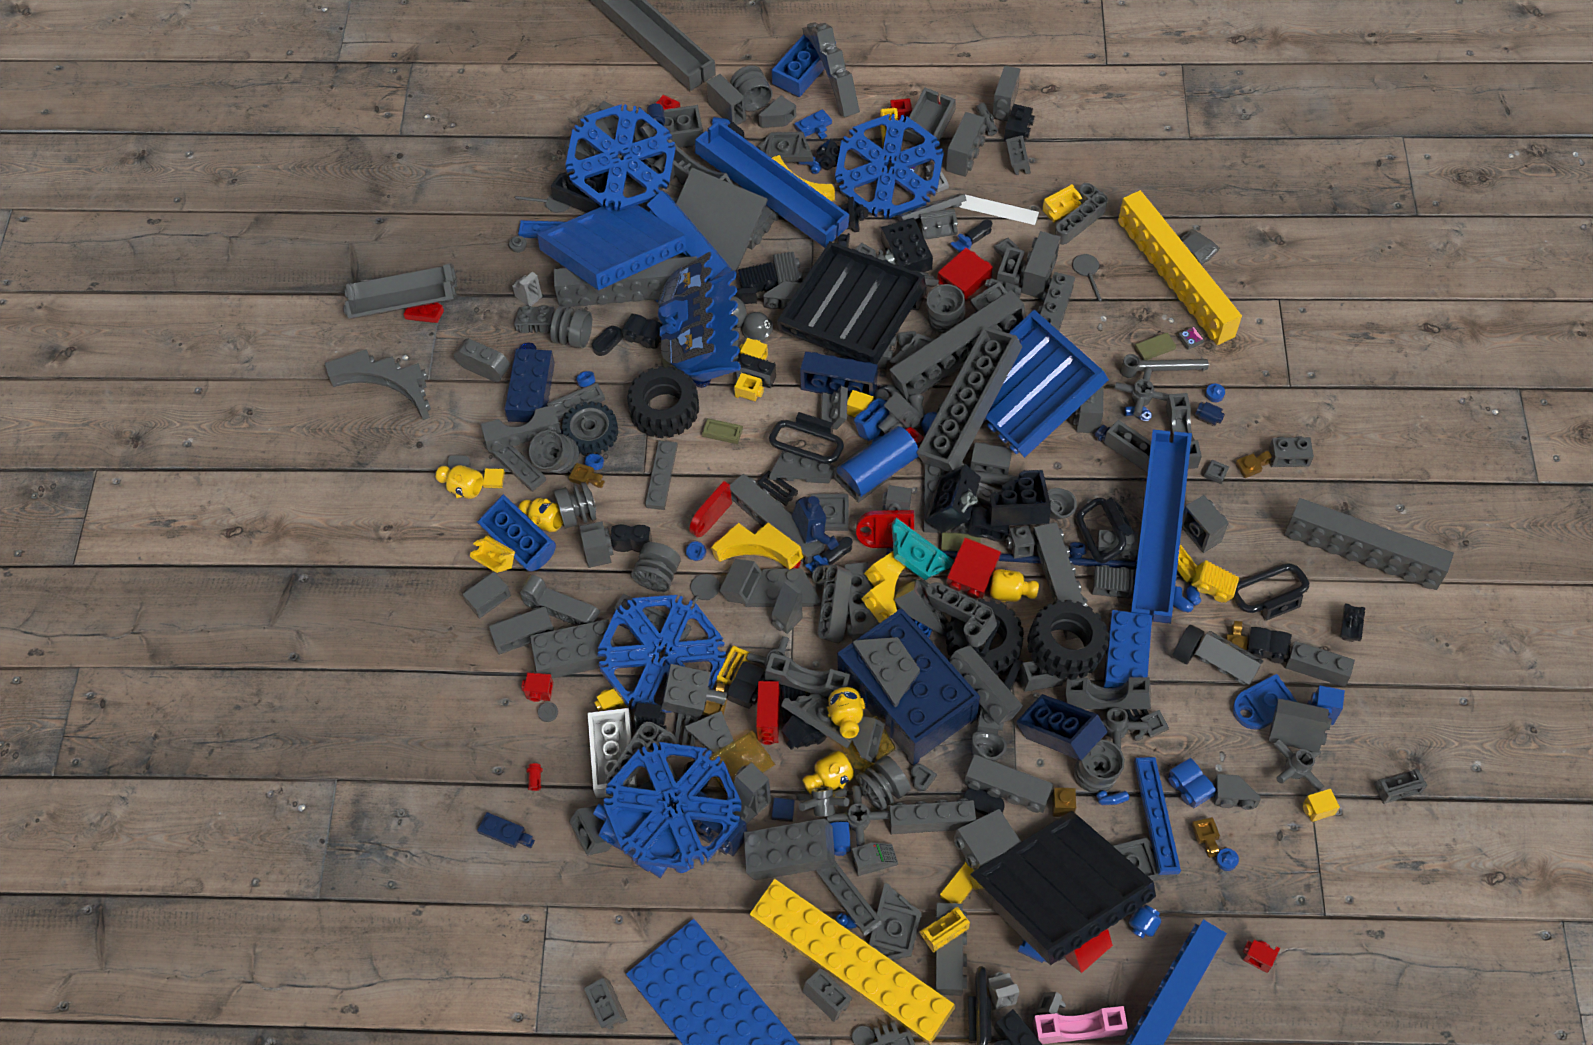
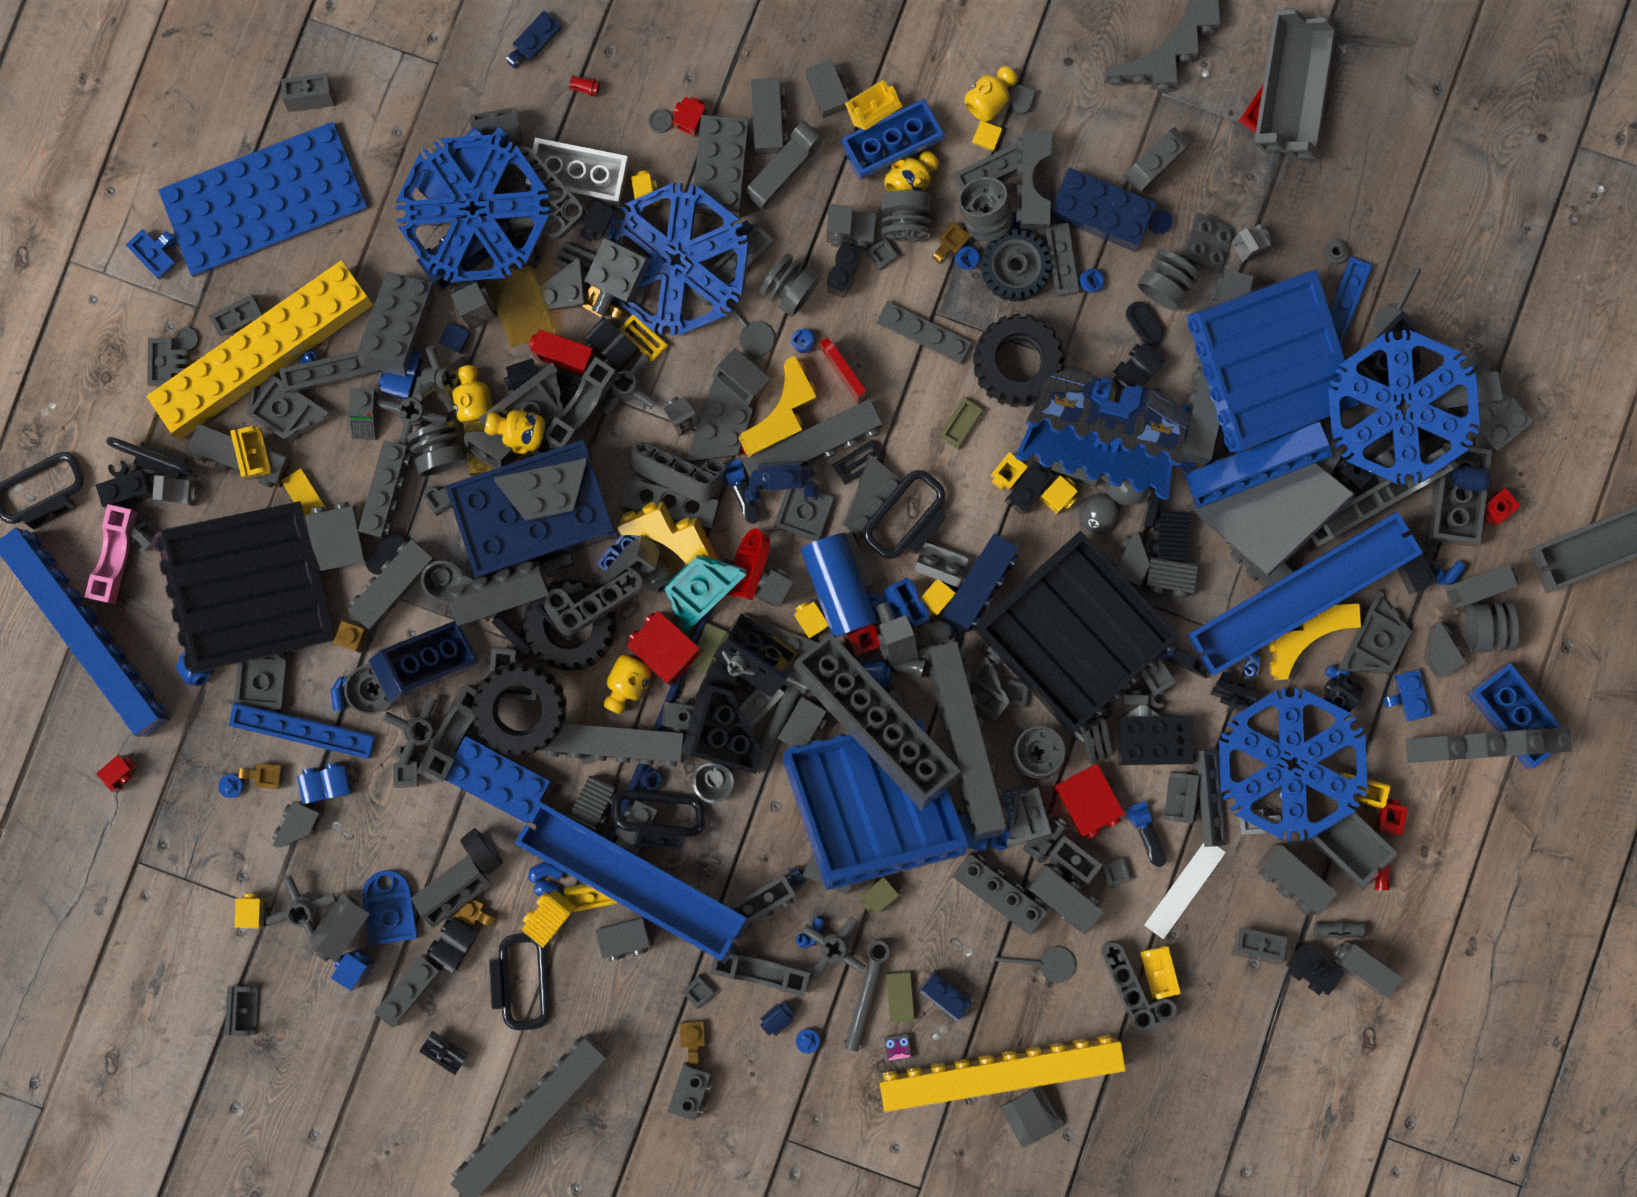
camera: 105 degrees right, 25 degrees up
(609, 519) = (882, 253): none -> dark grey tile
(675, 186) = (1356, 478): none -> black brick
(911, 477) = (810, 619): none -> yellow brick
(1141, 317) = (945, 996): none -> dark blue brick

